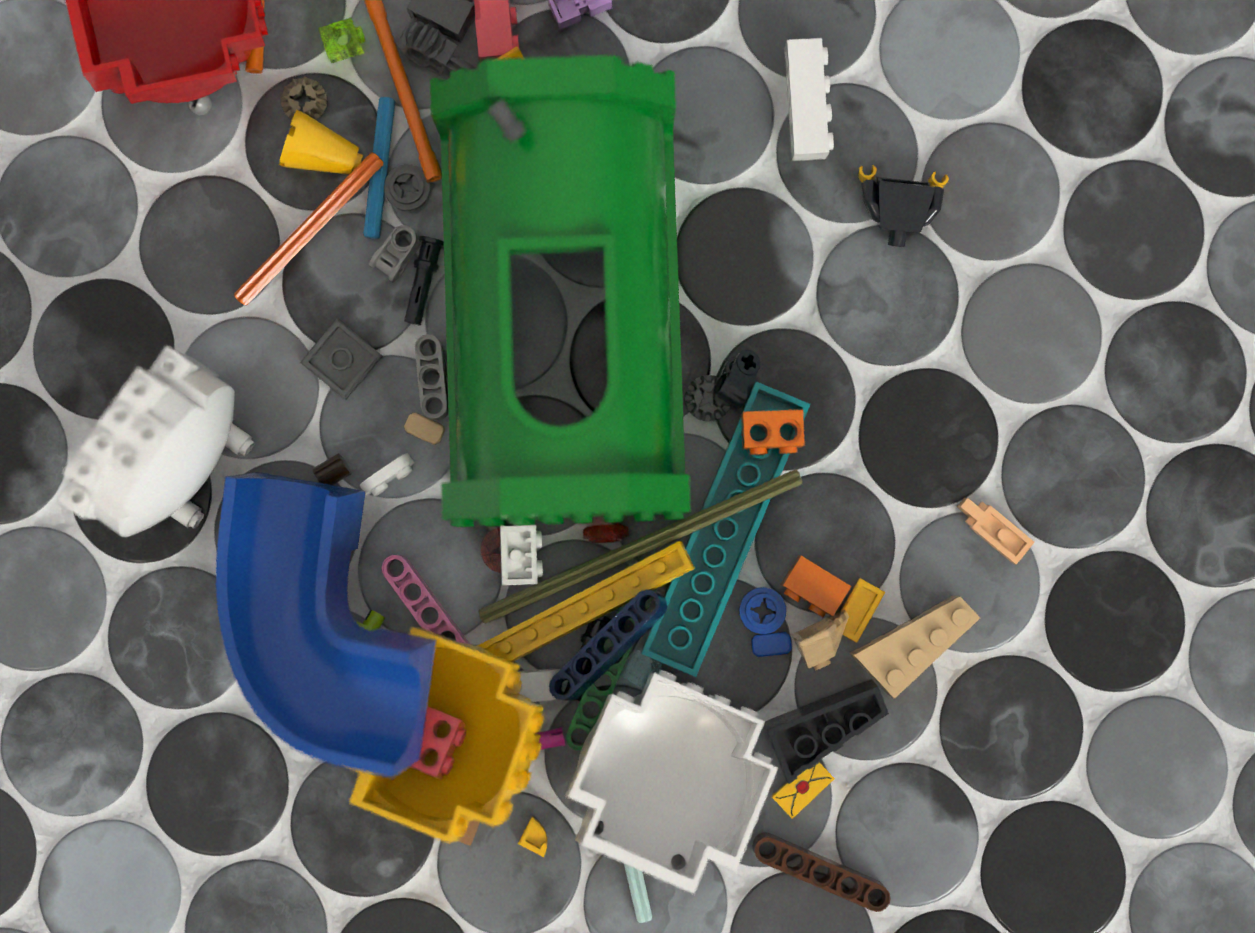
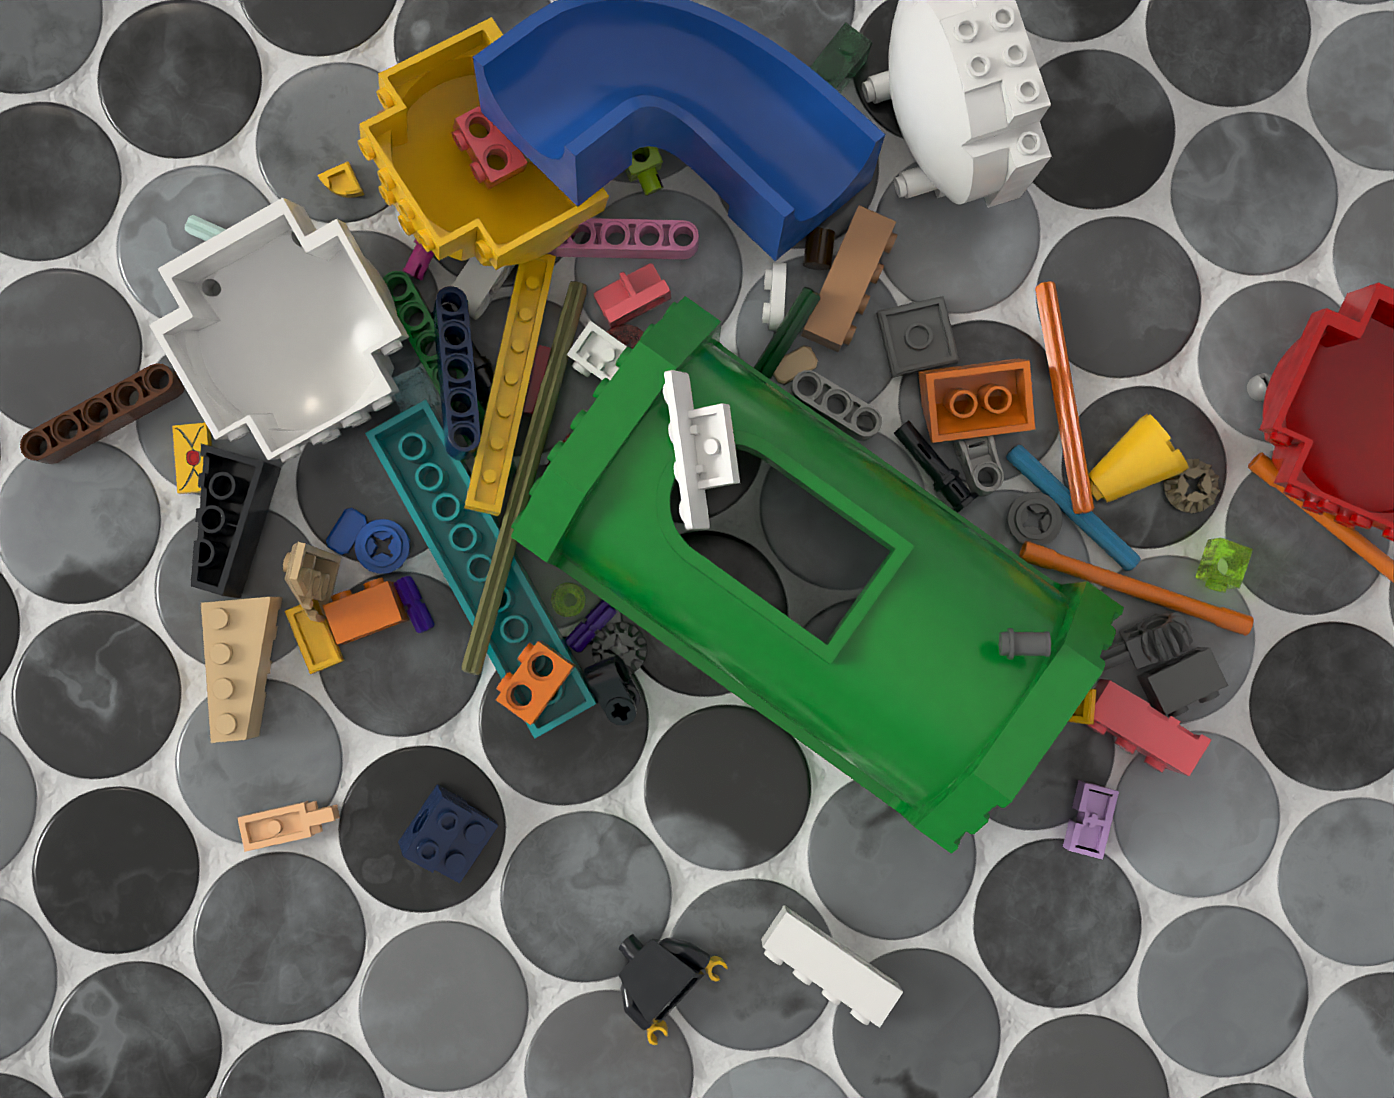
camera: 130 degrees right, 0 degrees up
(189, 555) = (842, 57): none -> clear green brick
(337, 434) = (848, 279): none -> medium nougat brick
(355, 285) = (977, 400): none -> orange slope
(407, 447) = (787, 332): none -> dark green axle
(461, 575) = (632, 295): none -> coral panel
(539, 419) = (702, 448): none -> white bracket
(565, 593) = (537, 374): none -> dark red tile
(705, 446) = (558, 599): none -> clear neon green cone
(714, 429) = (584, 632): none -> dark purple piece
(787, 553) = (411, 598): none -> dark purple piece
(918, 416) = (446, 835): none -> dark blue brick

